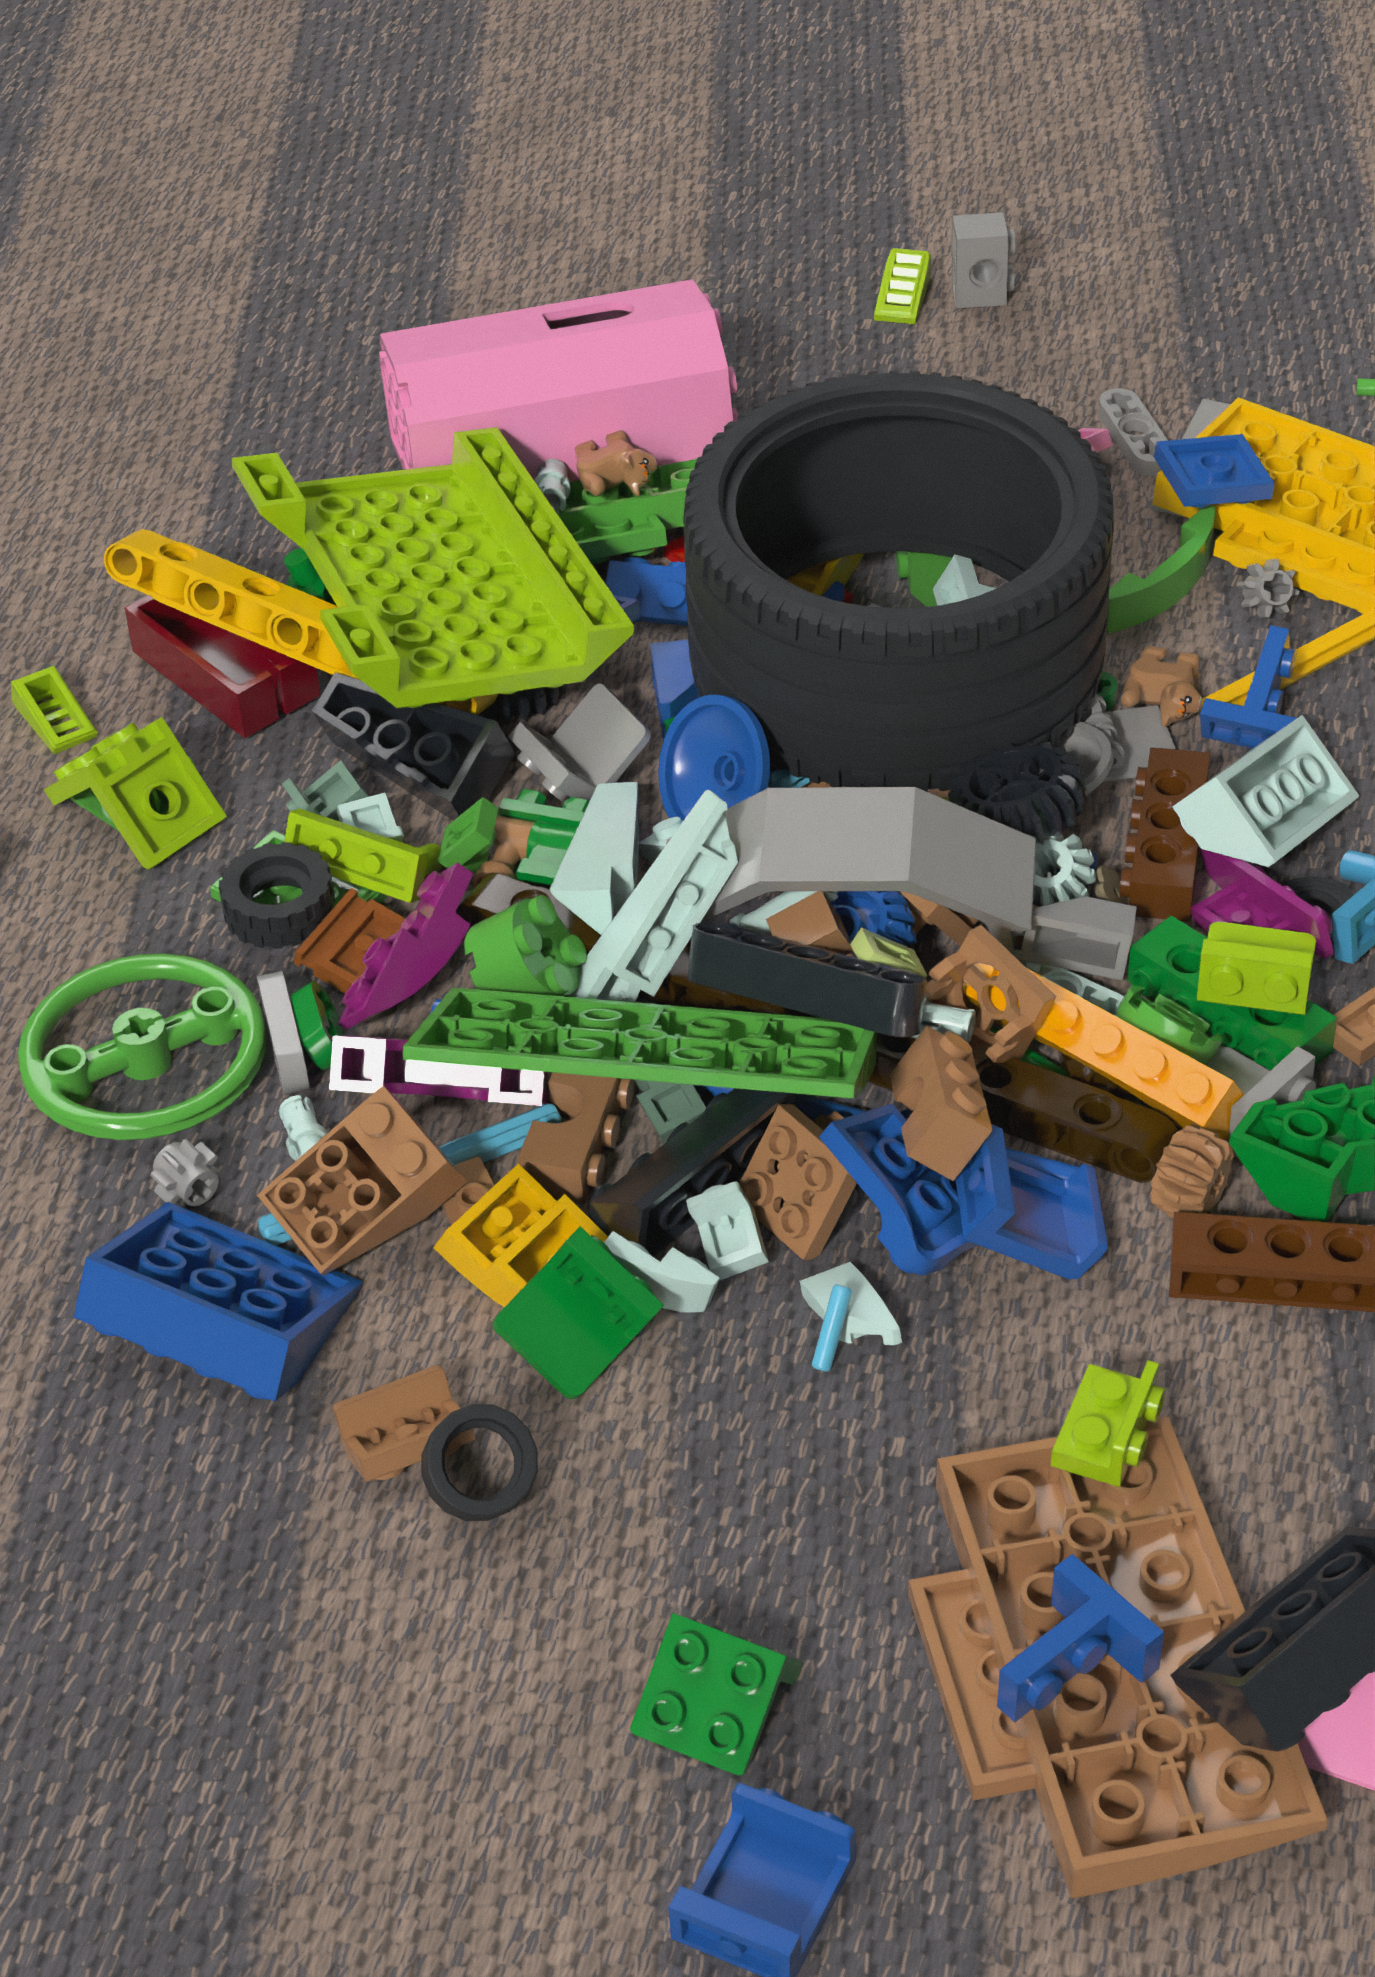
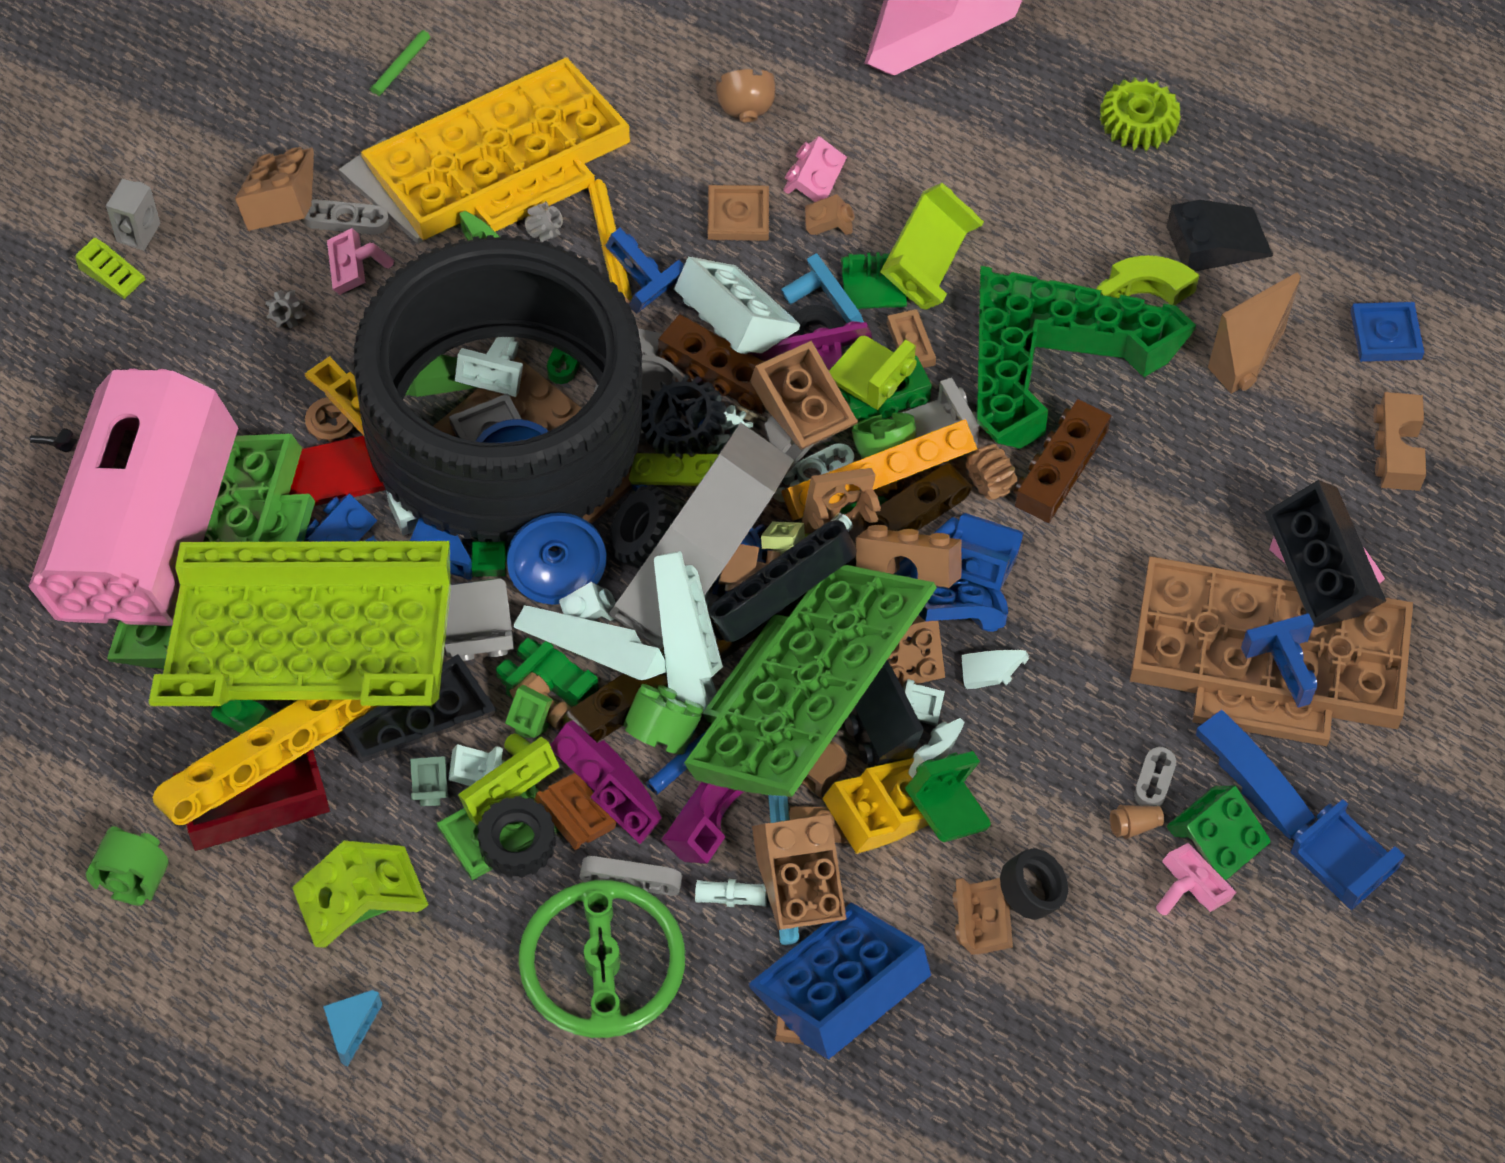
camera: 70 degrees left, 15 degrees up
(47, 684) = (221, 931): lime slope -> none
(70, 591) = (128, 866): none -> bright green brick
(185, 1173) = (729, 966): light grey gear -> none
(316, 1022) = (638, 853): green beam -> none
(554, 483) = (226, 534): light aqua pin -> none
(606, 1683) = (1196, 876): none -> bright pink plate
(613, 465) = (229, 498): medium nougat animal -> none
(674, 1568) = (1134, 820): none -> medium nougat cone
(771, 1575) = (1162, 780): none -> light grey beam
(831, 1328) = (1010, 681): medium azure piece -> none
(847, 1696) = (1256, 773): none -> blue slope
(1108, 1422) = (1151, 580): lime bracket -> none
(1118, 353) = (277, 189): none -> medium nougat slope
(1146, 896) = (802, 395): none -> medium nougat slope
(1213, 470) = (446, 195): blue plate -> none

